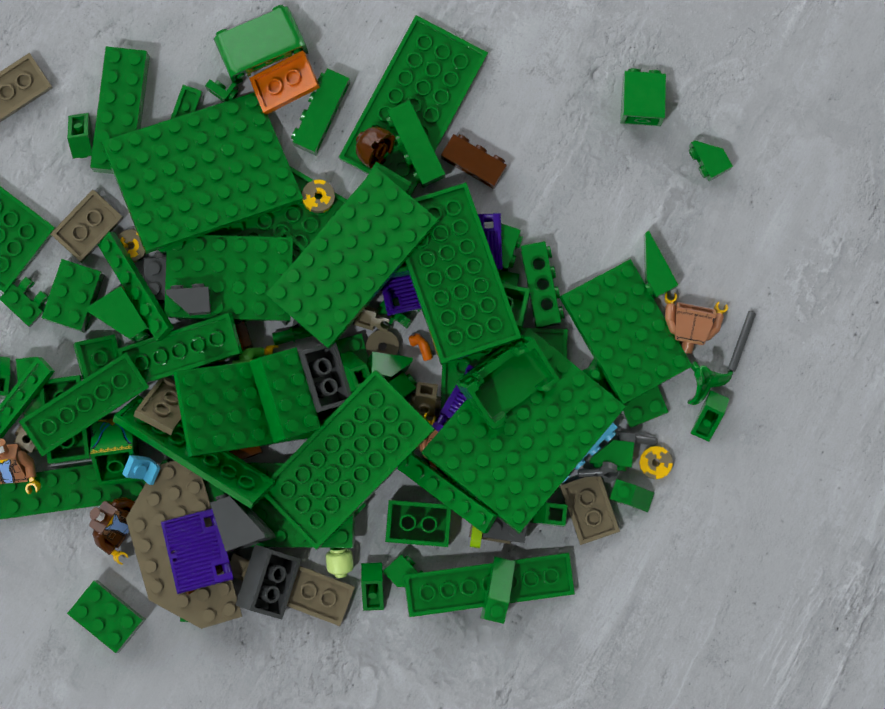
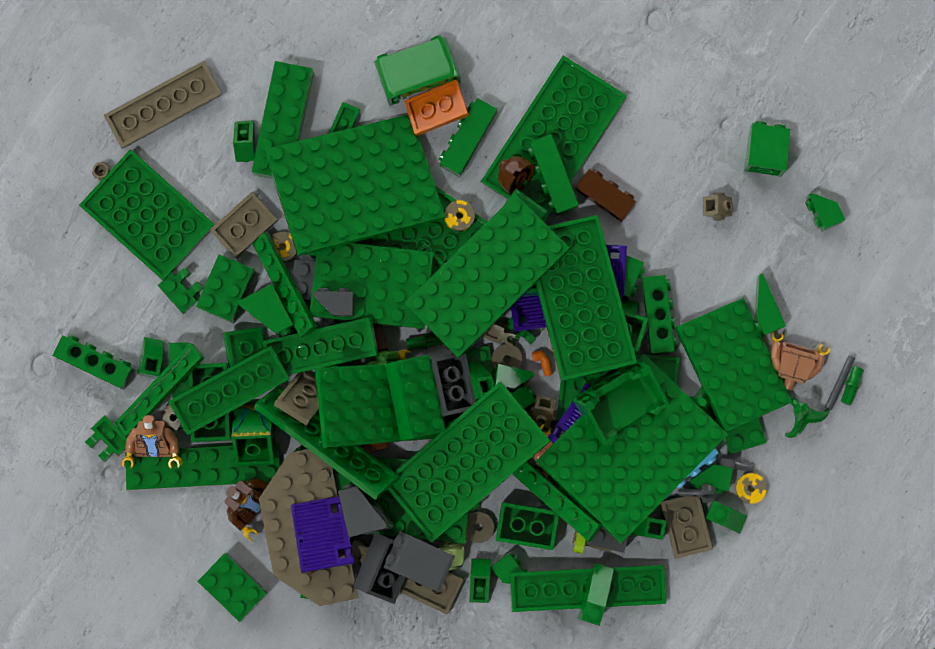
camera: 10 degrees right, 0 degrees up
(141, 468) = (277, 453): medium azure bracket -> none
(218, 90) = (375, 110): green bracket -> none
(304, 571) = (419, 561): none -> dark grey slope
(376, 529) = (487, 530): none -> dark tan piece
(595, 163) = (717, 206): none -> dark tan brick
(710, 415) = (805, 449): green slope -> none
(755, 343) = (852, 385): none -> green axle

